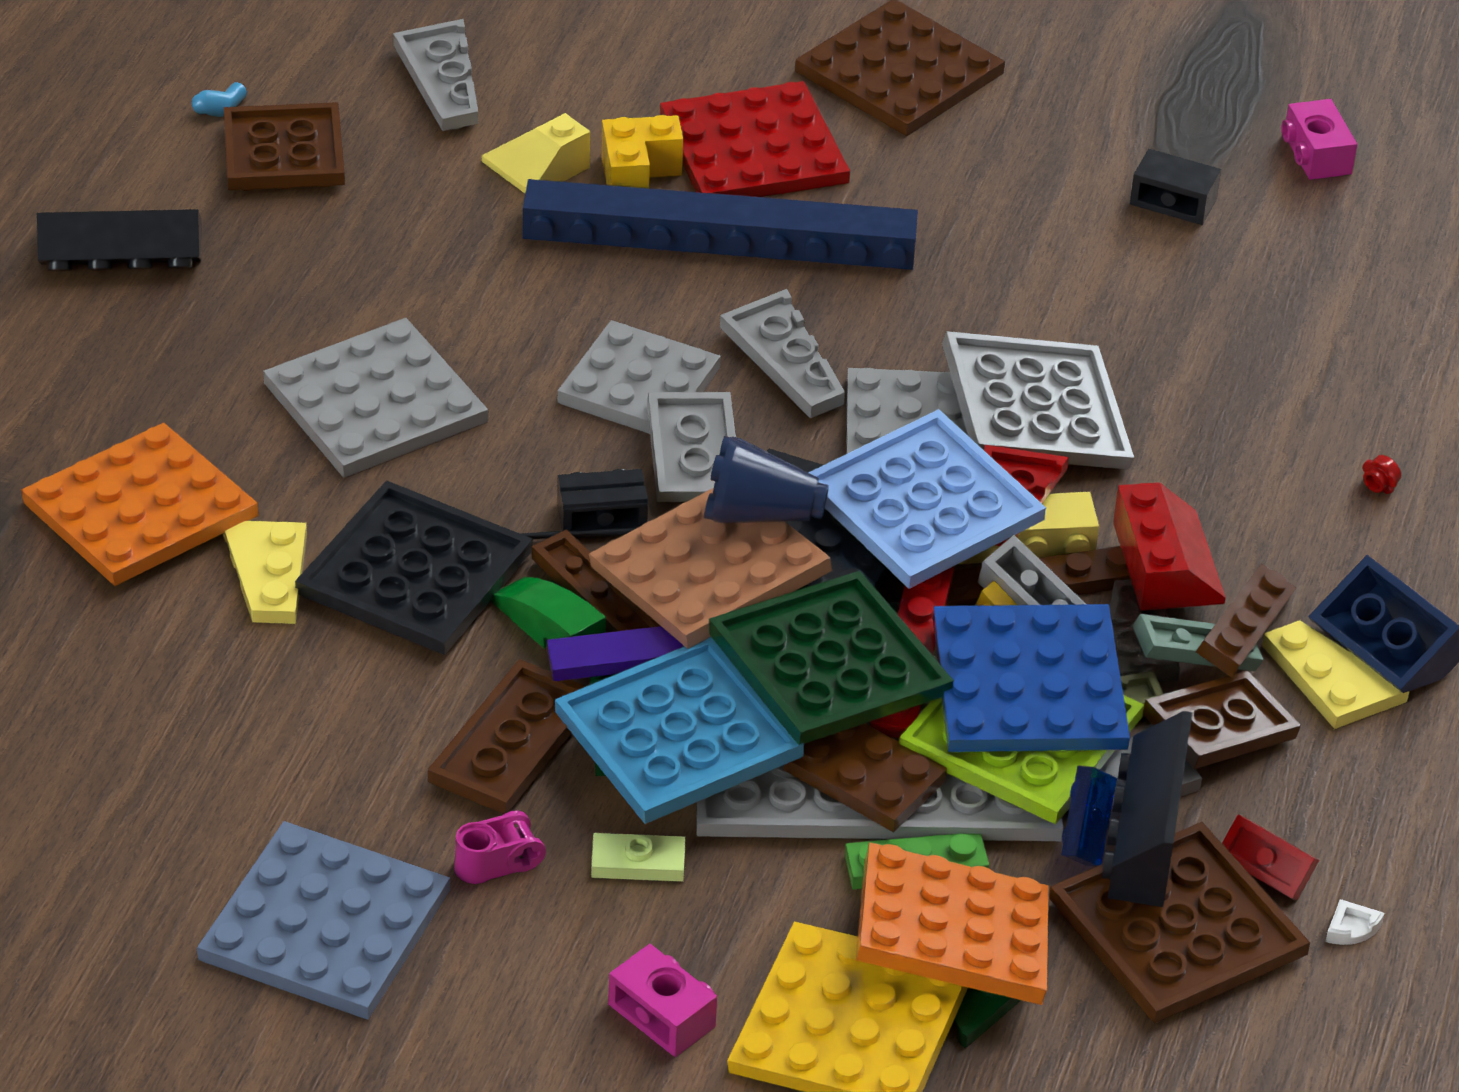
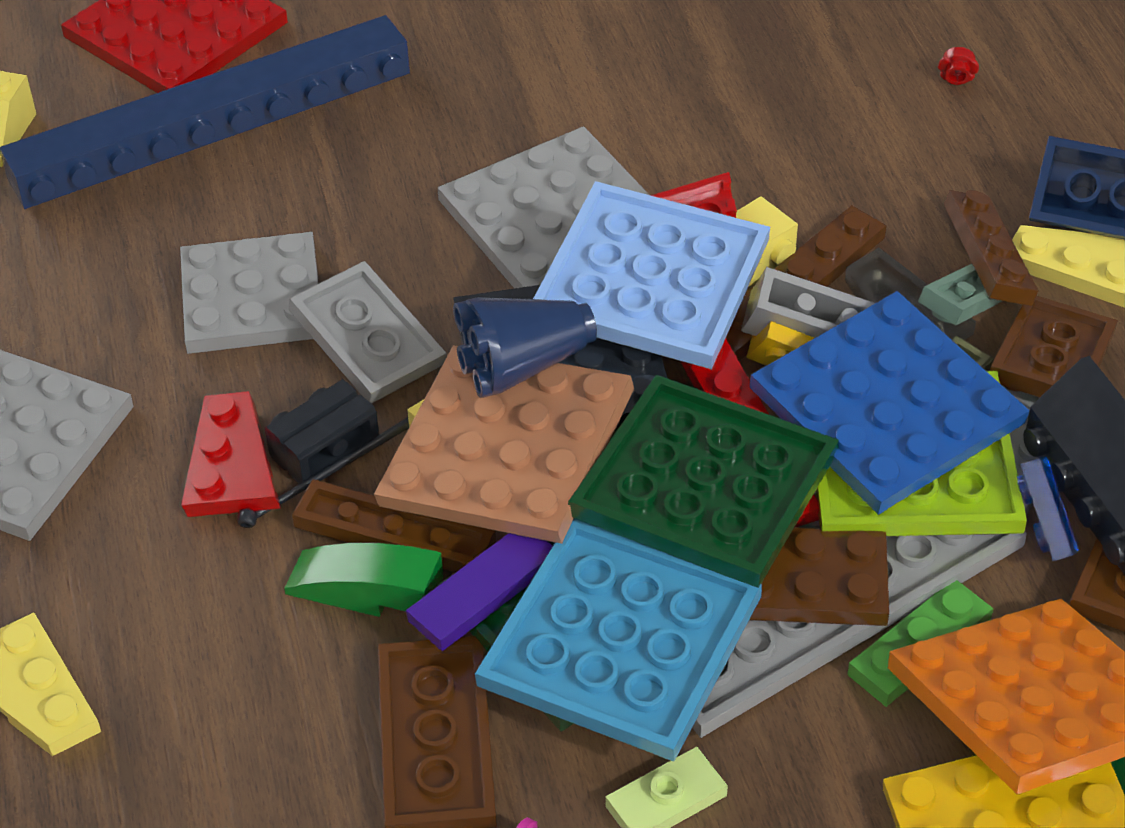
camera: 30 degrees left, 5 degrees up
(414, 567) = (185, 602): black plate -> none
(522, 487) = (228, 460): none -> wing
(641, 149) = (81, 74): yellow brick -> none
(780, 345) = (359, 197): light grey wing -> none
(1038, 398) = (635, 133): light grey plate -> none
(1165, 549) = (868, 219): red slope -> none

